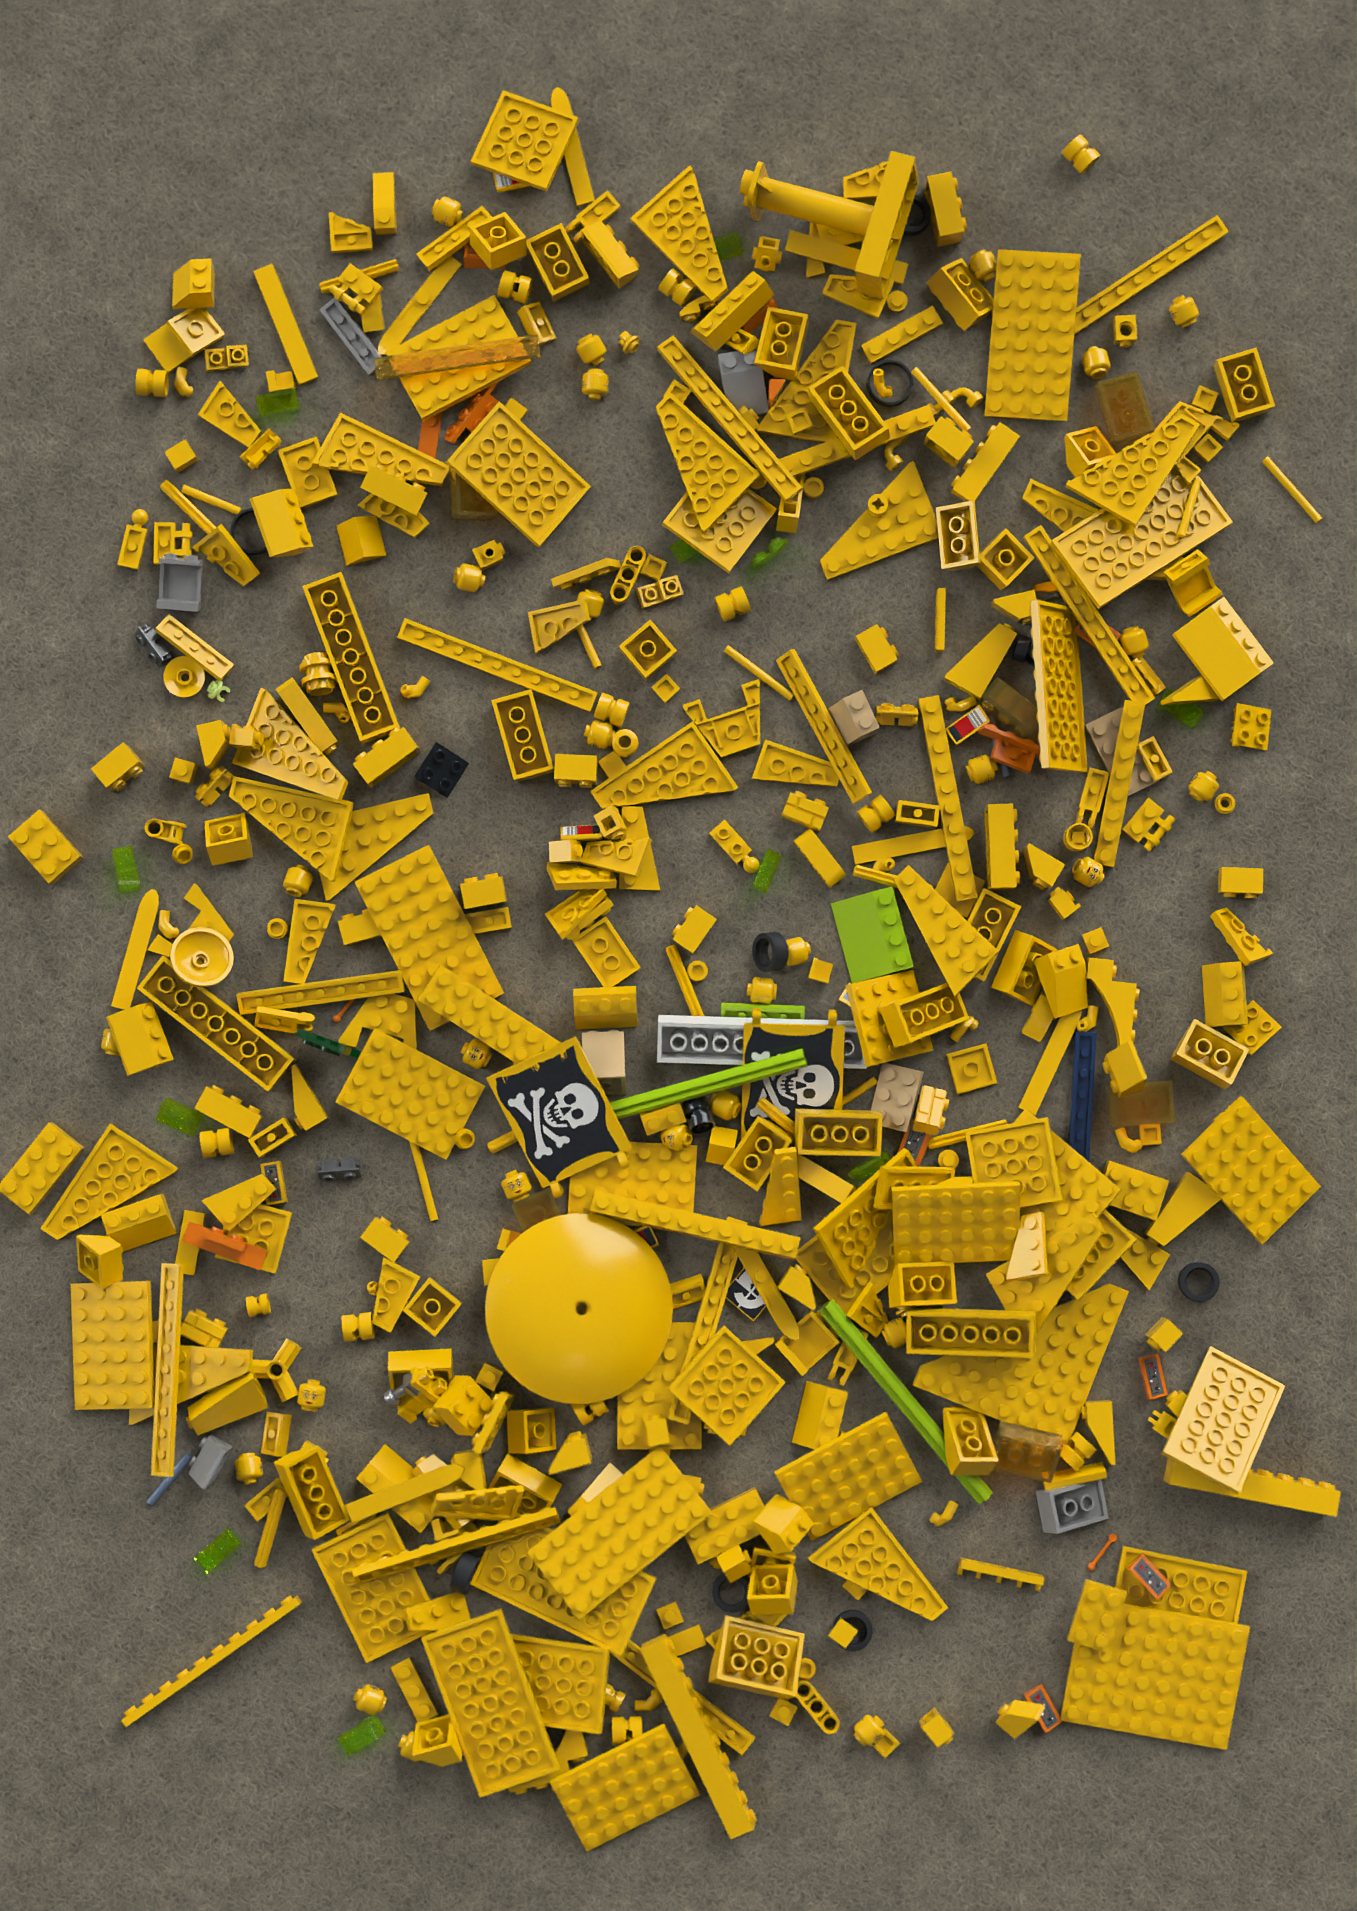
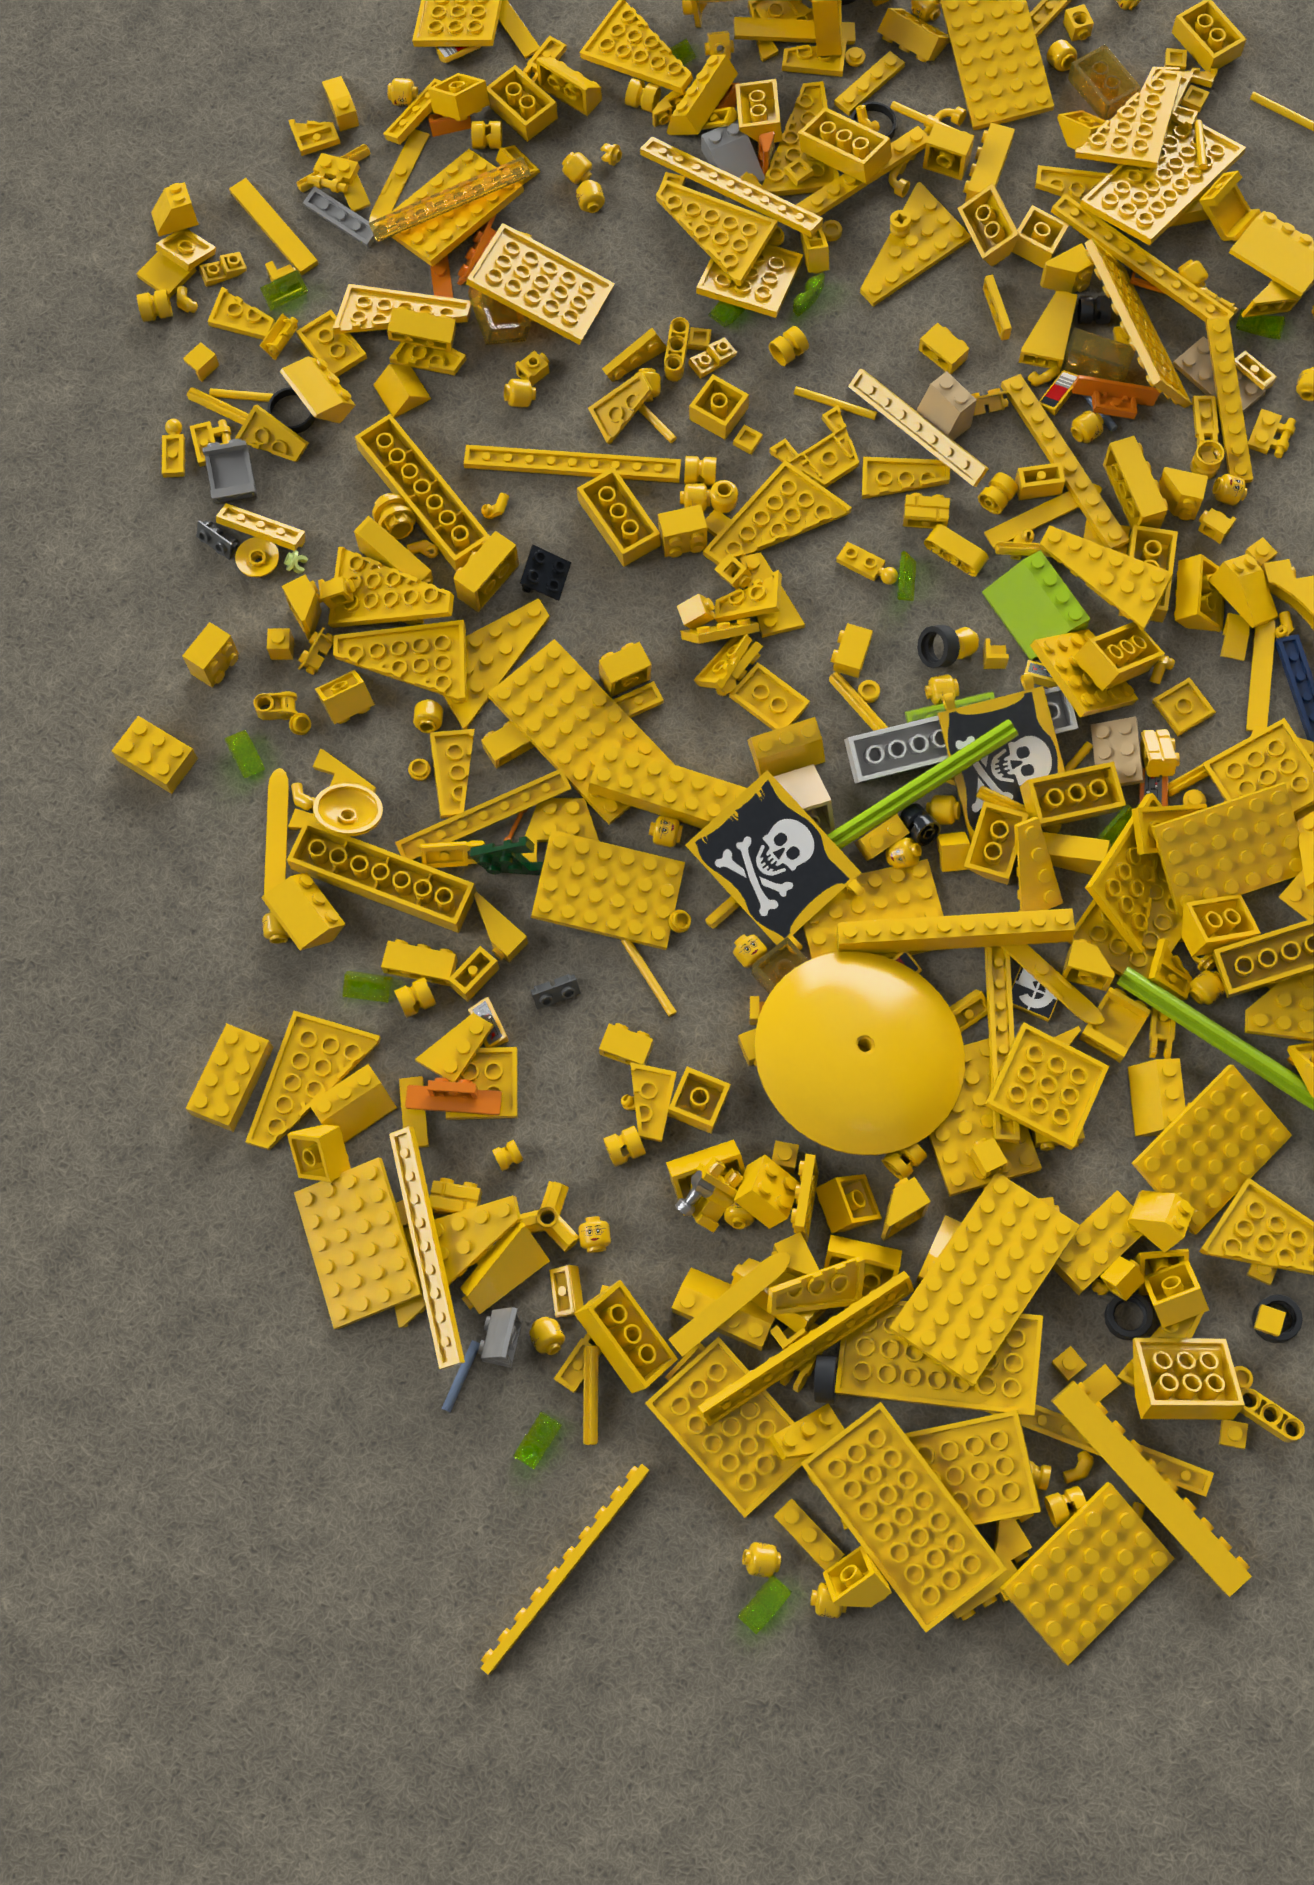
camera: 10 degrees left, 15 degrees down
(581, 833) = (714, 592): slope -> none

